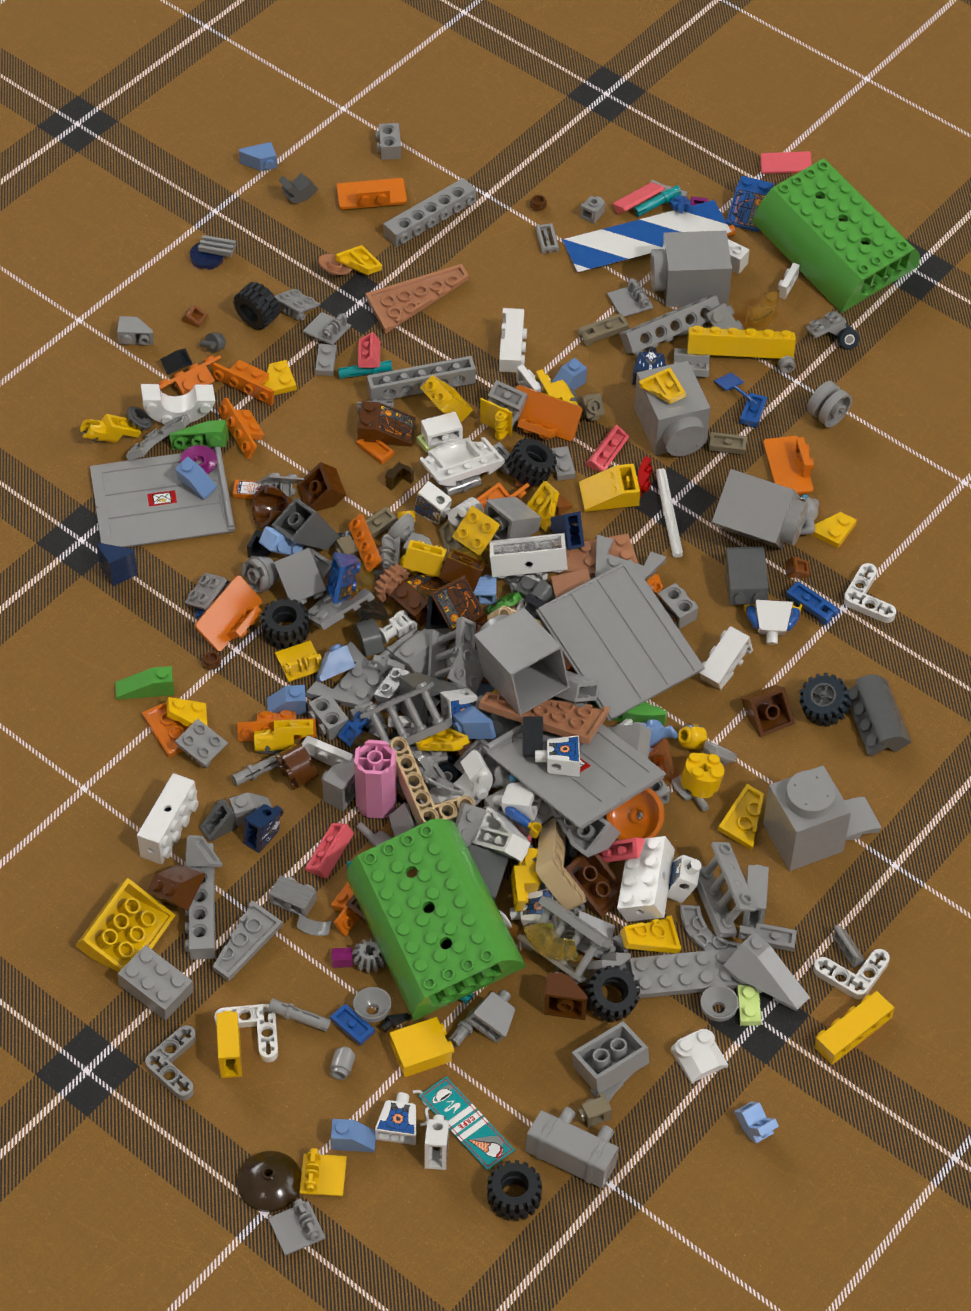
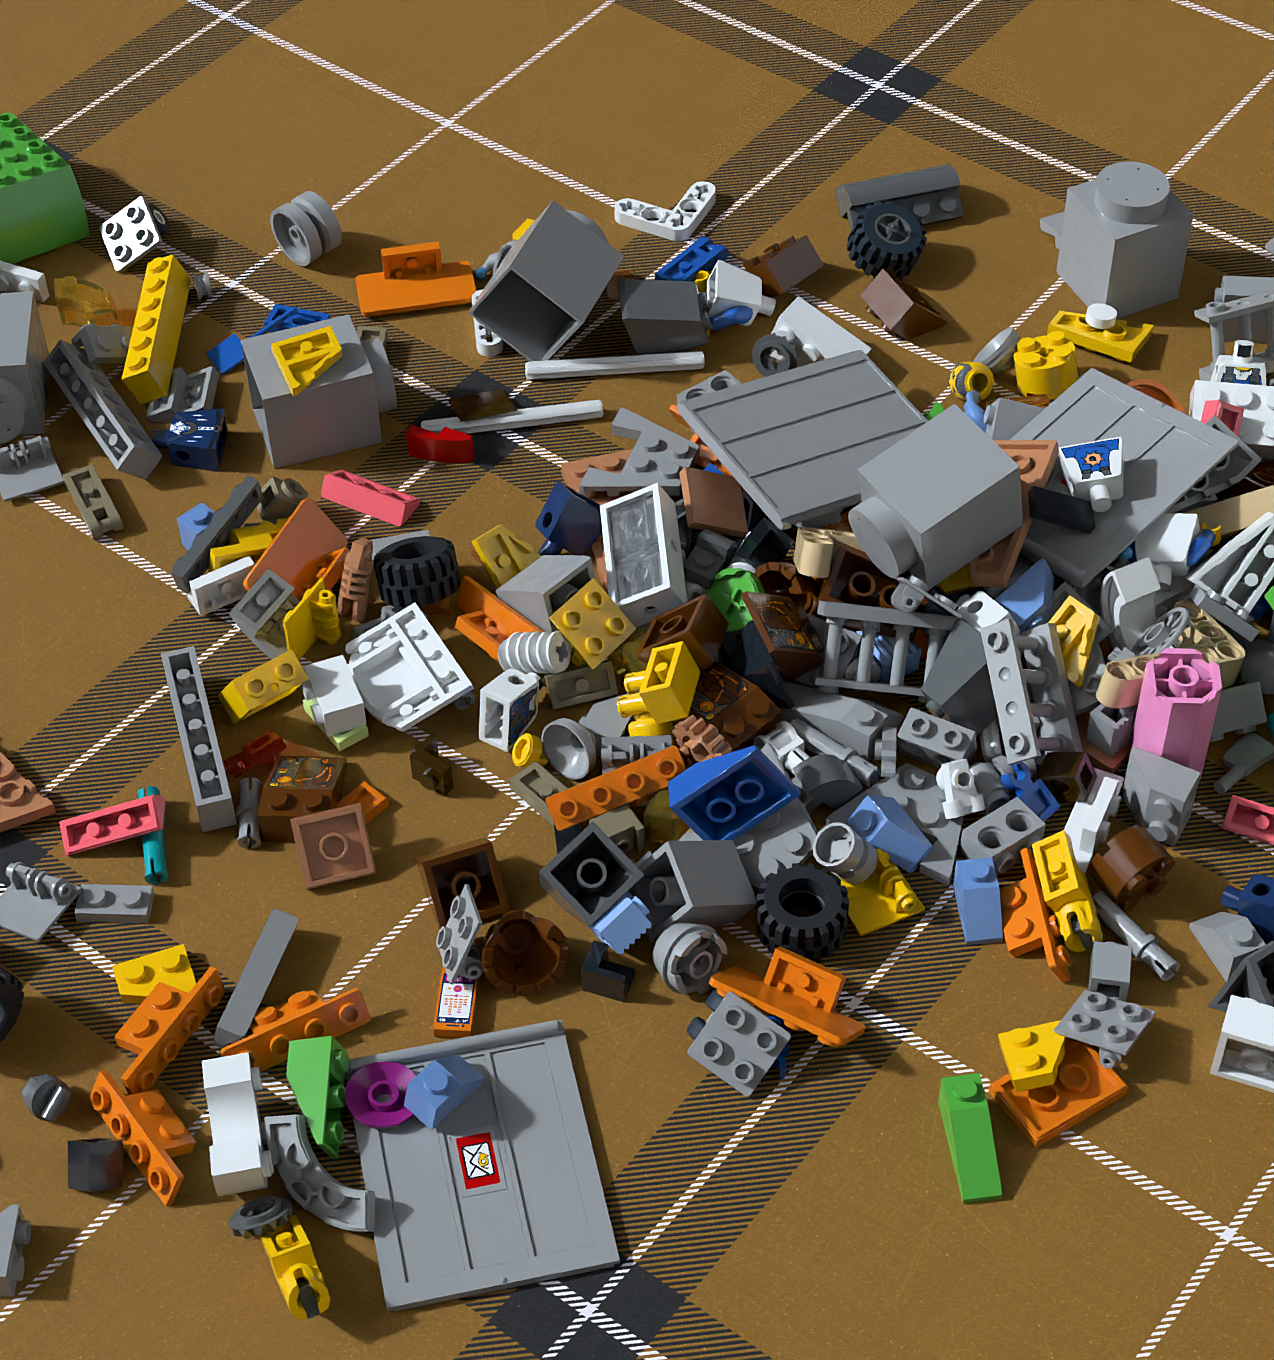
camera: 90 degrees left, 5 degrees down
(117, 562) = (682, 1211): dark blue slope -> none
(211, 660) = (893, 1034): reddish brown plate -> none
(236, 753) = (1110, 969): none -> light grey brick
(271, 409) = (255, 978): none -> light grey slope
(313, 635) = (845, 853): none -> light grey wheel
(345, 434) = (333, 846): none -> nougat tile
(354, 692) = (961, 795): none -> white plate
(415, 408) = (259, 751): none -> clear red plate
(512, 340) = (115, 612): white wedge -> none
(526, 431) = (356, 579): none -> nougat hinge
(572, 378) = (231, 516): none -> dark grey plate
(611, 489) = (470, 478): yellow slope -> none
(679, 497) = (481, 405): none -> dark brown sticker
(714, 636) = (767, 345): none -> dark grey gear
(716, 564) = (614, 365): none -> white axle
(754, 812) = (1101, 316): none -> white tile
(805, 646) = (784, 265): none -> reddish brown slope

